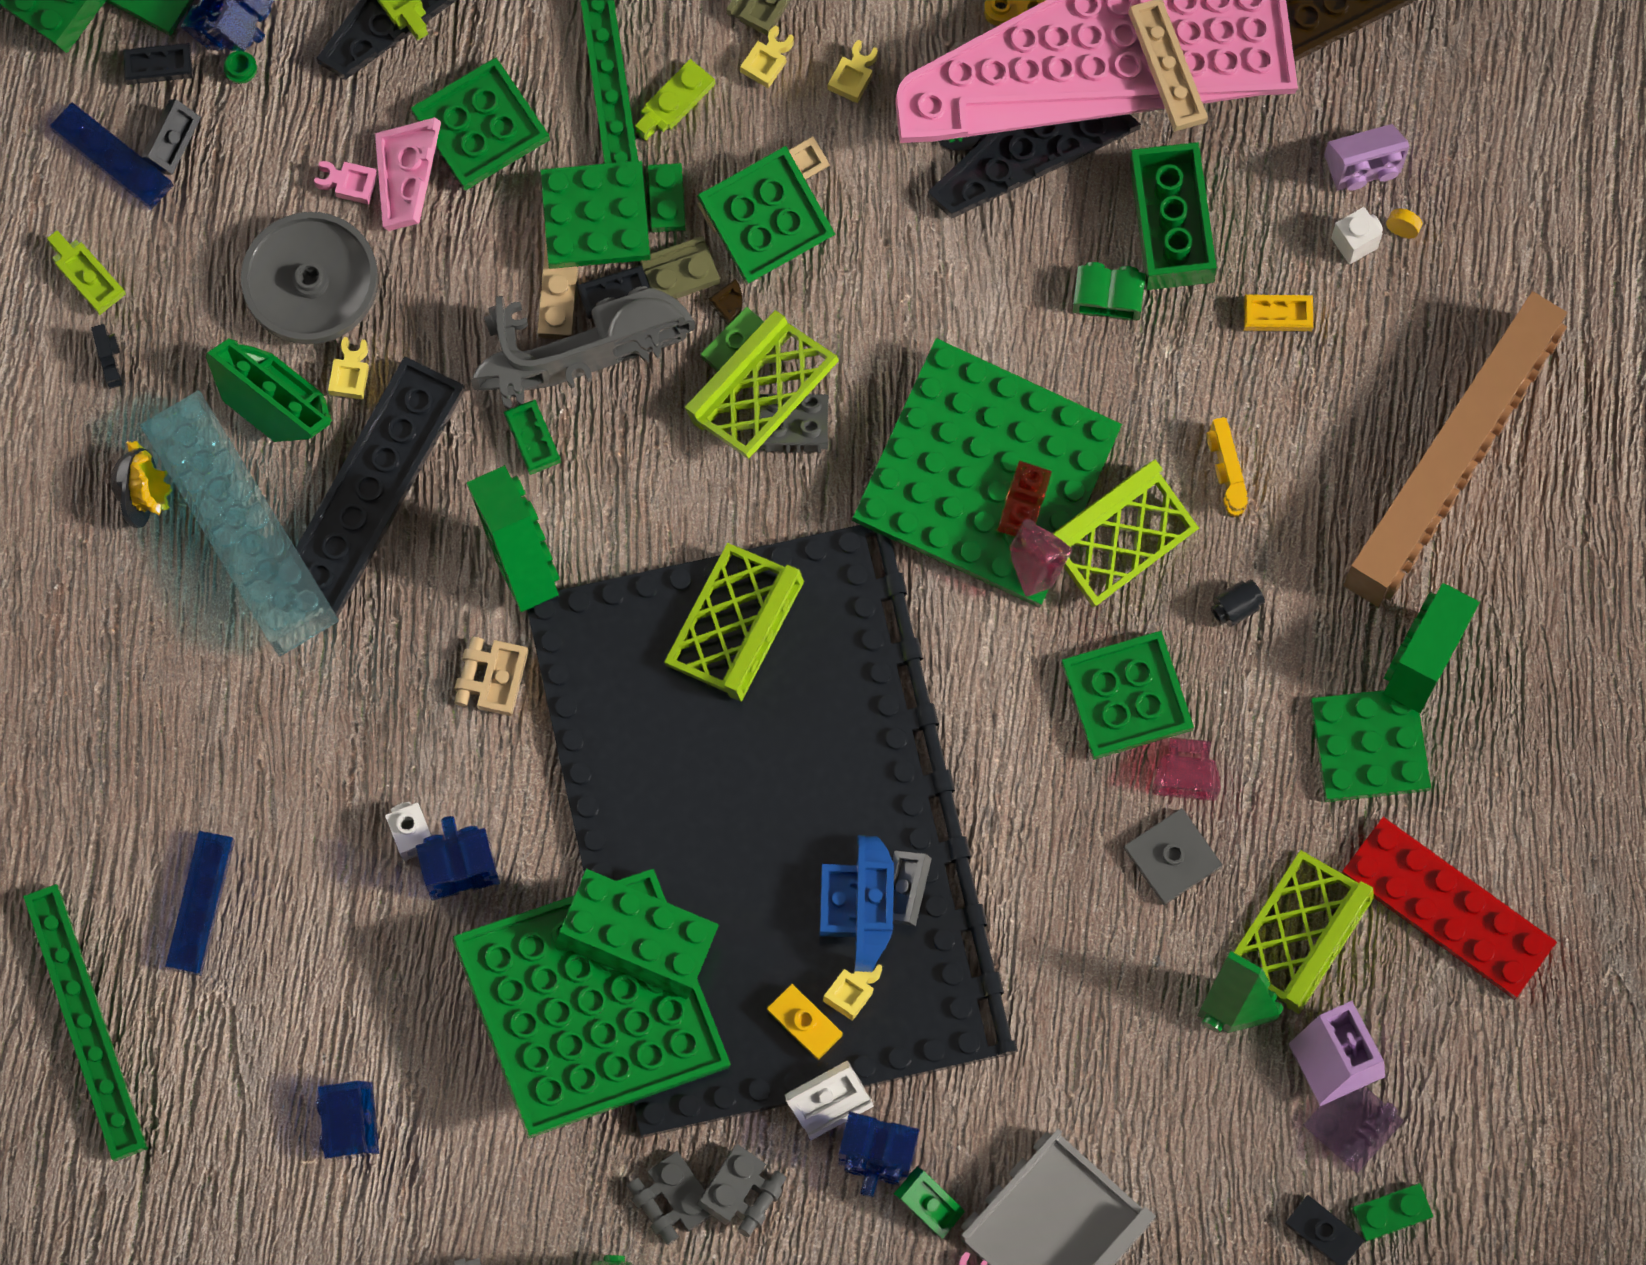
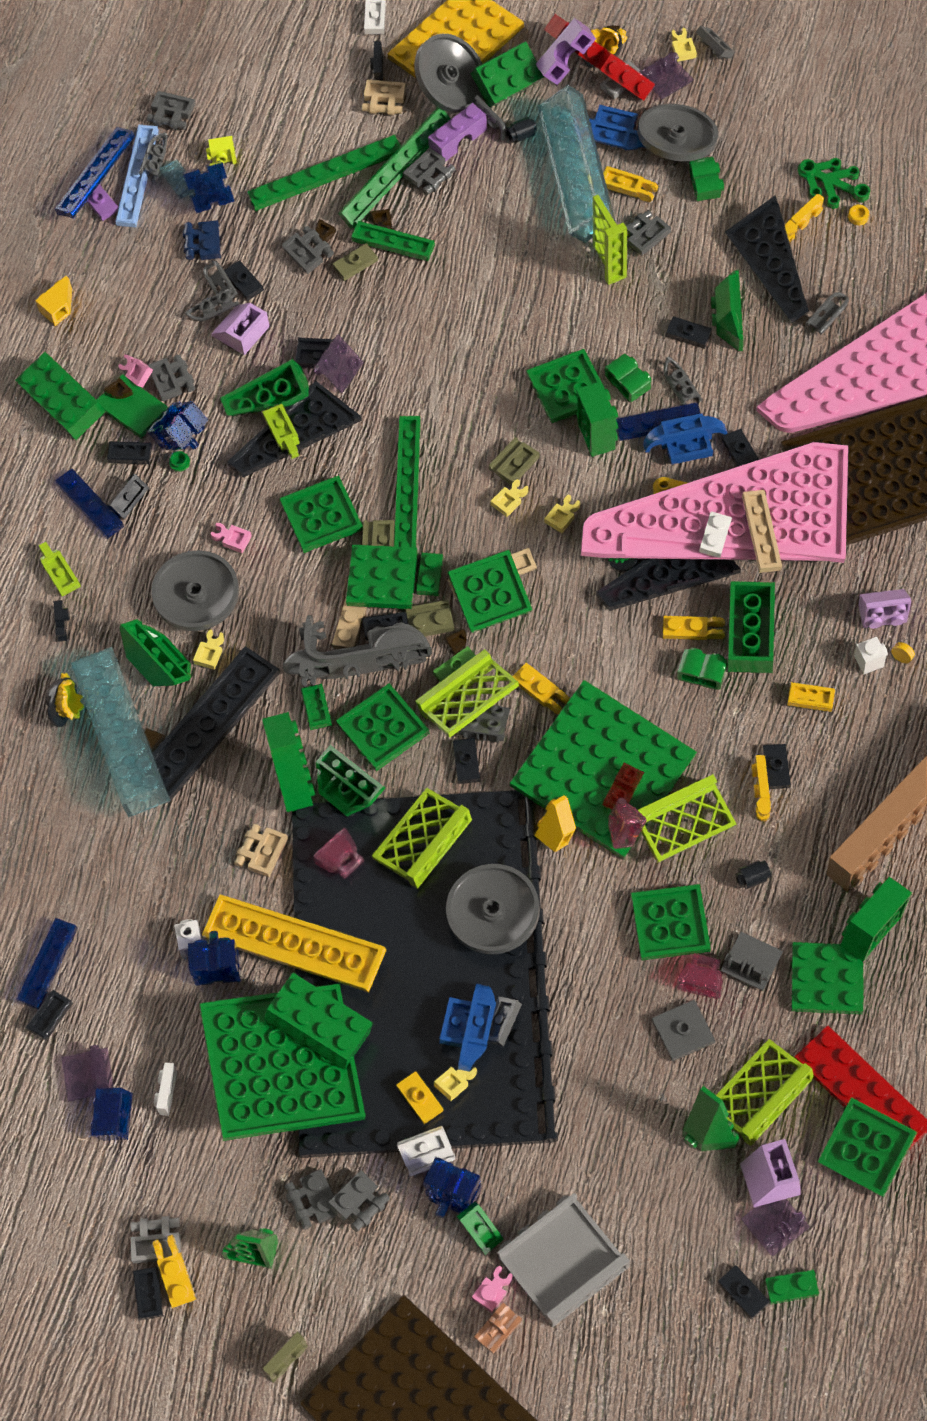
camera: 15 degrees right, 10 degrees down
(220, 982) = (49, 1015): none -> black plate
(293, 524) = (154, 738): none -> dark brown tile
(297, 1062) = (87, 1072): none -> clear purple hinge
(404, 171) = (267, 535): bright pink wing -> none
(421, 1082) = (167, 1079): none -> white plate
(574, 815) = (296, 942): none -> yellow plate
(576, 144) = (379, 532): none -> olive plate
(603, 554) = (345, 783): none -> green wedge
(611, 665) = (337, 852): none -> clear pink piece
(640, 454) = (382, 727): none -> green plate
(674, 100) = (446, 516): lime hinge -> none
(777, 489) = (466, 761): none -> black plate
(863, 718) = (492, 909): none -> dark grey dish
(869, 357) = (540, 688): none -> yellow hinge
(934, 573) = (557, 824): none -> yellow slope
(1081, 227) = (692, 627): none -> yellow hinge
(1098, 80) = (715, 534): none -> white plate
(1245, 428) = (777, 766): none -> black plate
(1256, 735) = (751, 961): none -> dark grey hinge
(1470, 991) = (867, 1147): none -> green plate

